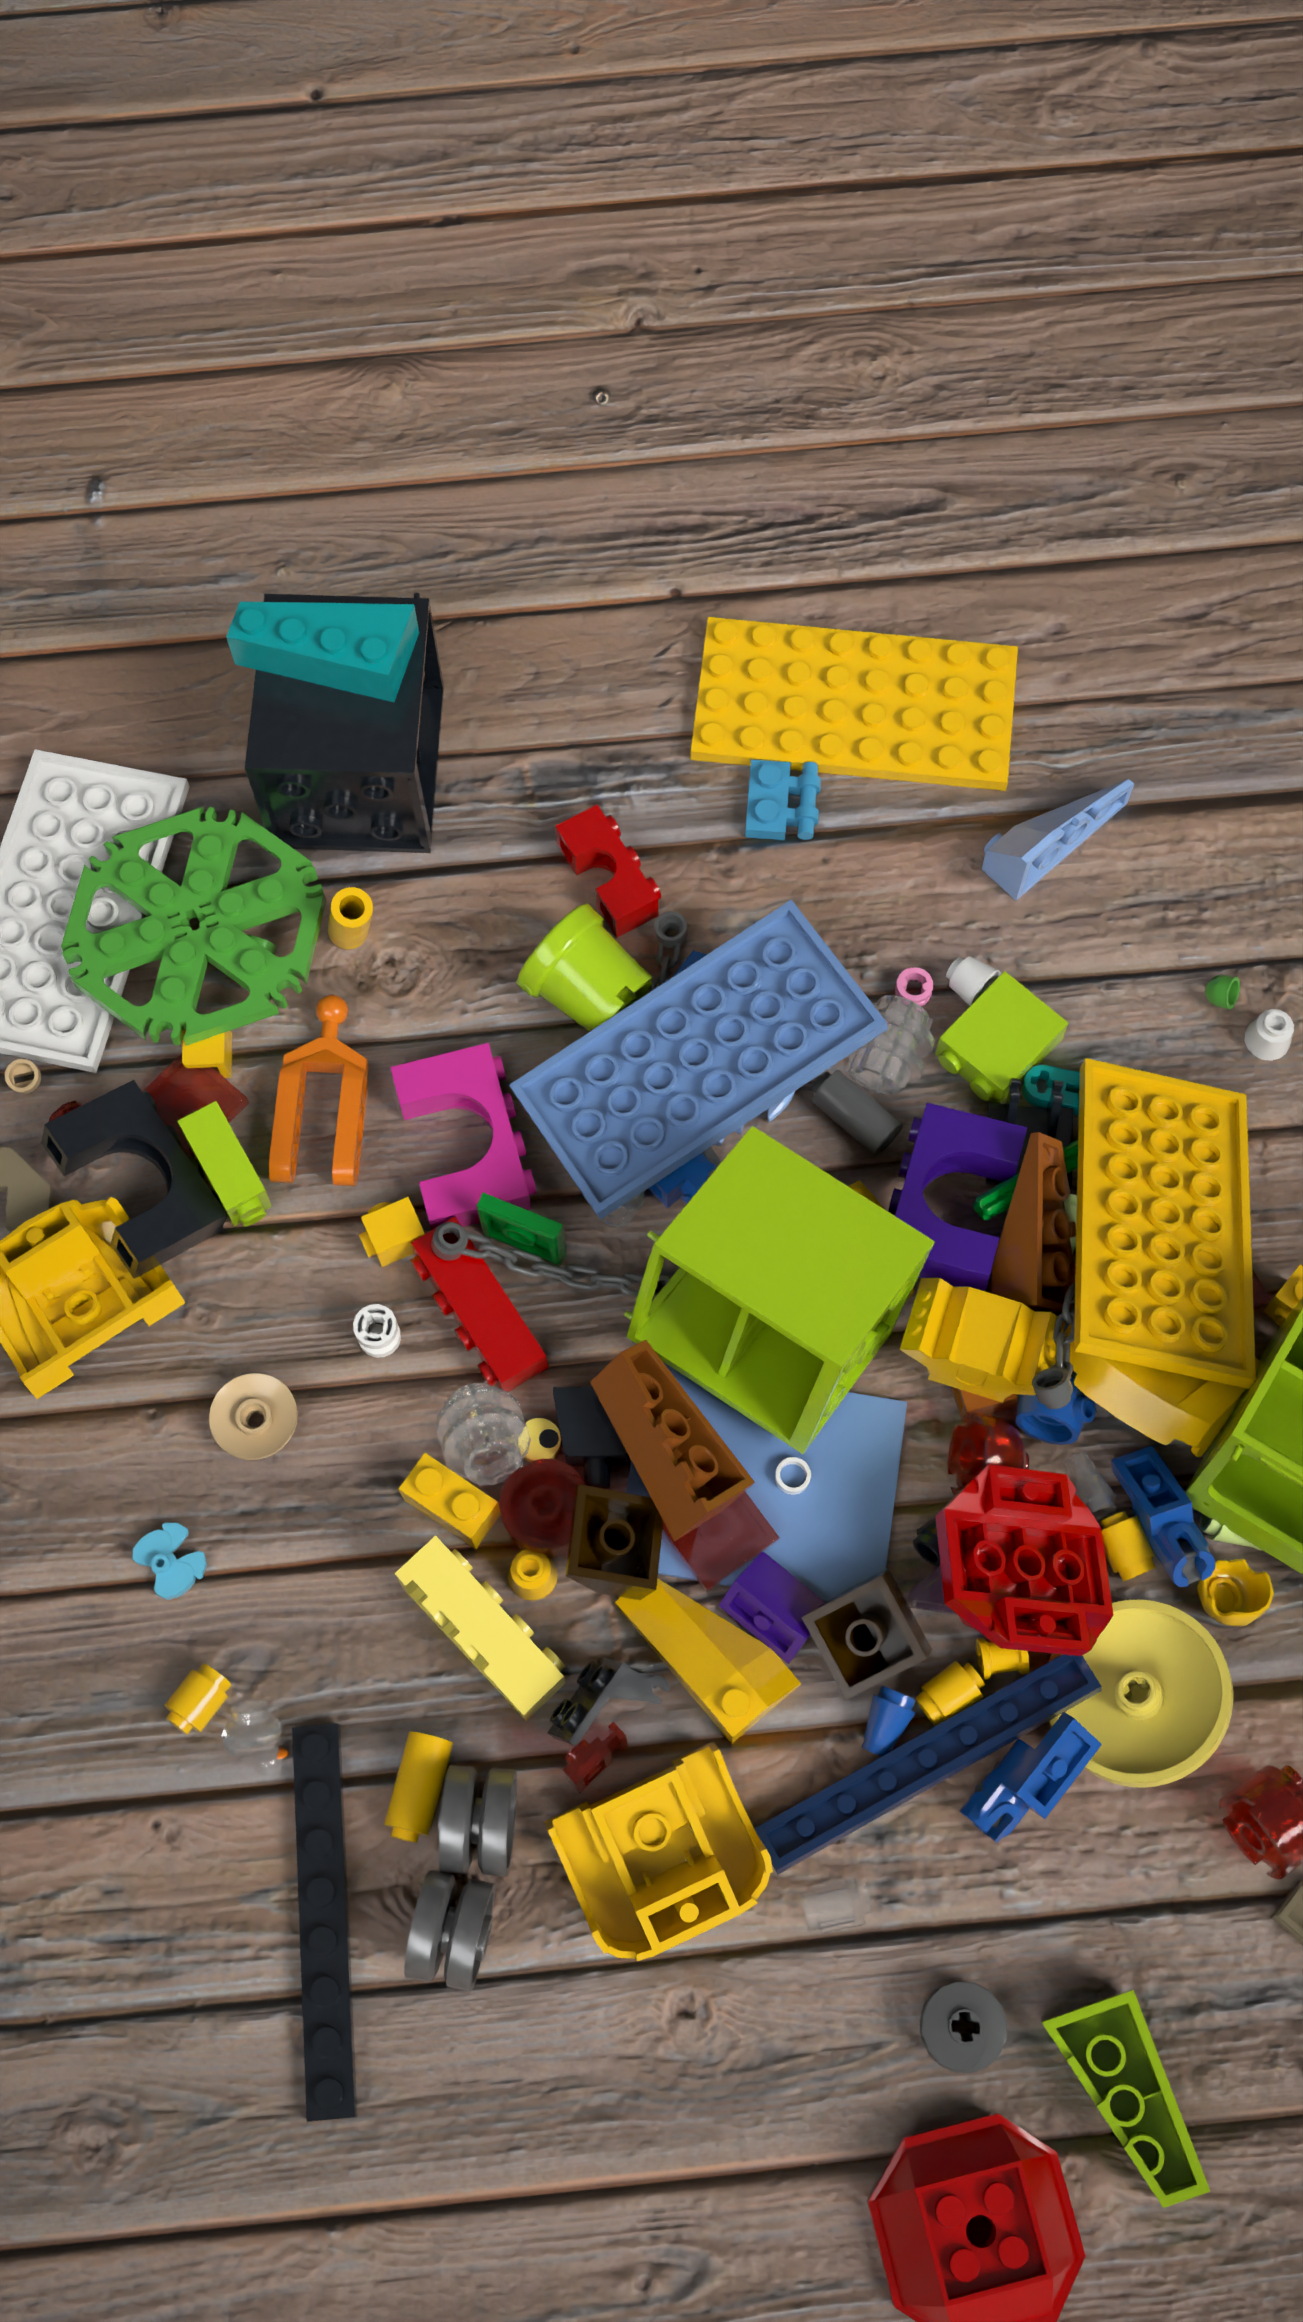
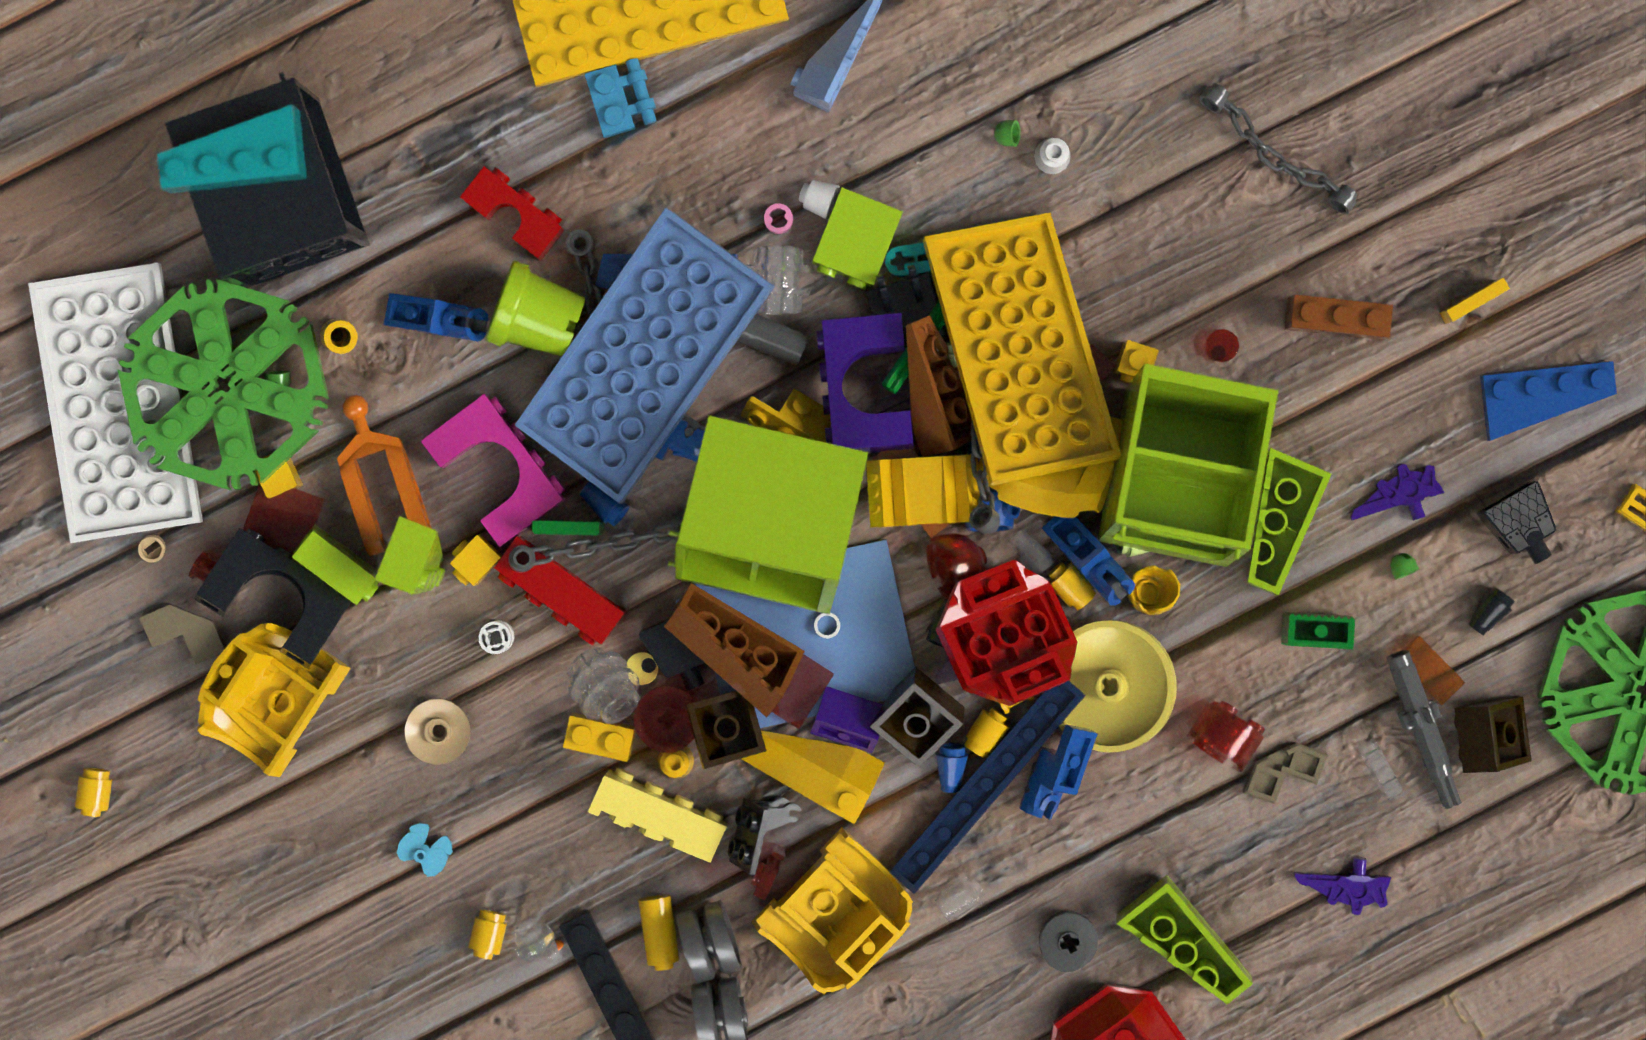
camera: 30 degrees left, 20 degrees up
(319, 1175) = (412, 559): none -> lime wedge
(470, 942) = (436, 317): none -> blue plate
(581, 1229) = (603, 505): none -> blue cone

